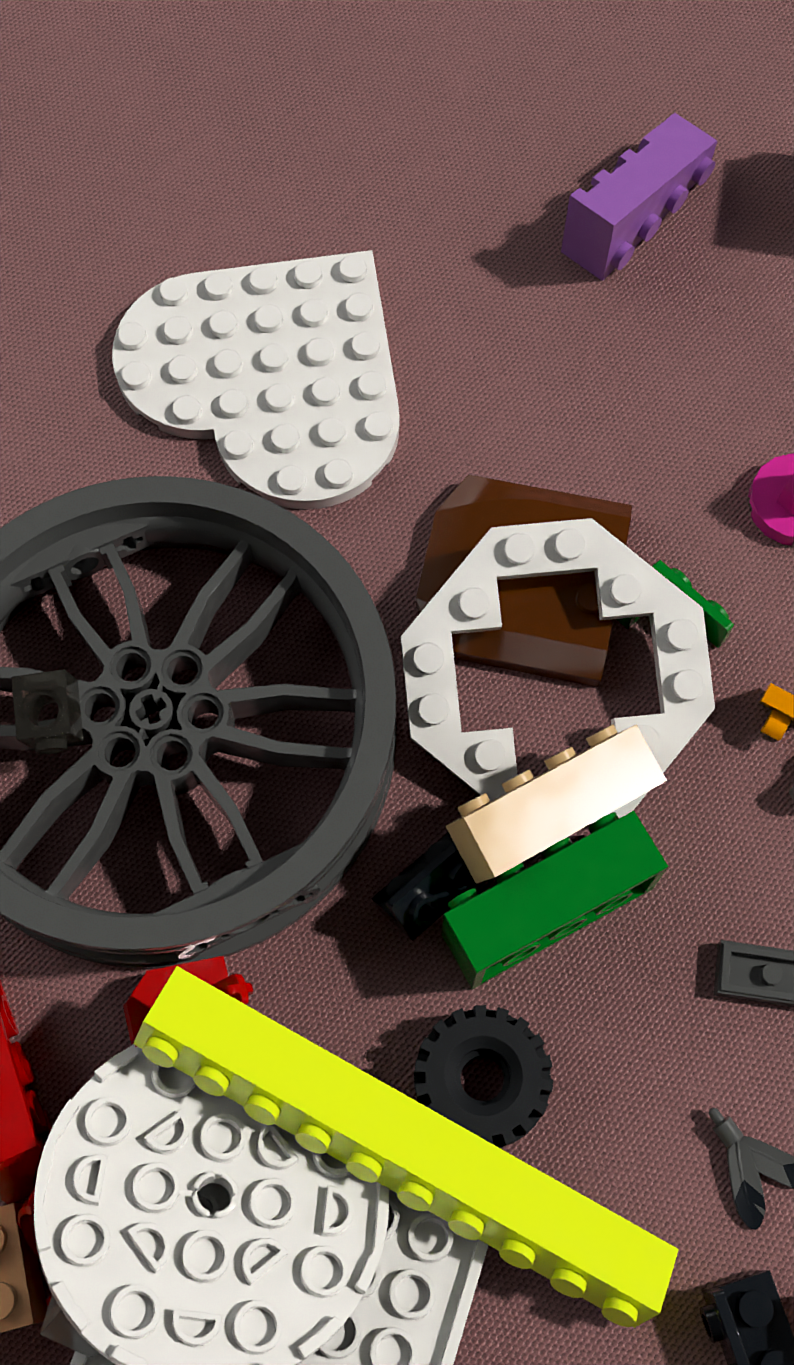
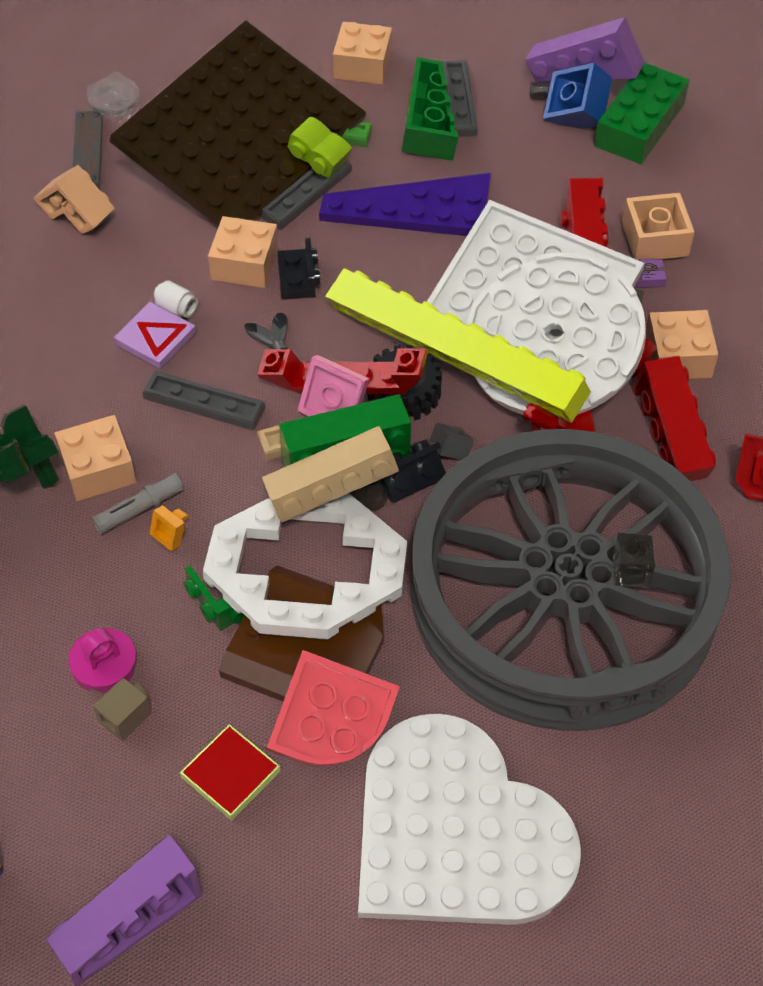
camera: 170 degrees left, 15 degrees down
(377, 971) = (453, 441): none -> dark grey slope
(461, 461) = (330, 713): none -> coral plate
(573, 385) = (230, 772): none -> red tile
(588, 1048) = (395, 377): none -> red slope
(600, 1003) = (330, 387): none -> bright pink tile
(672, 919) = (270, 442): none -> tan tile
(740, 425) = (123, 708): none -> dark tan brick

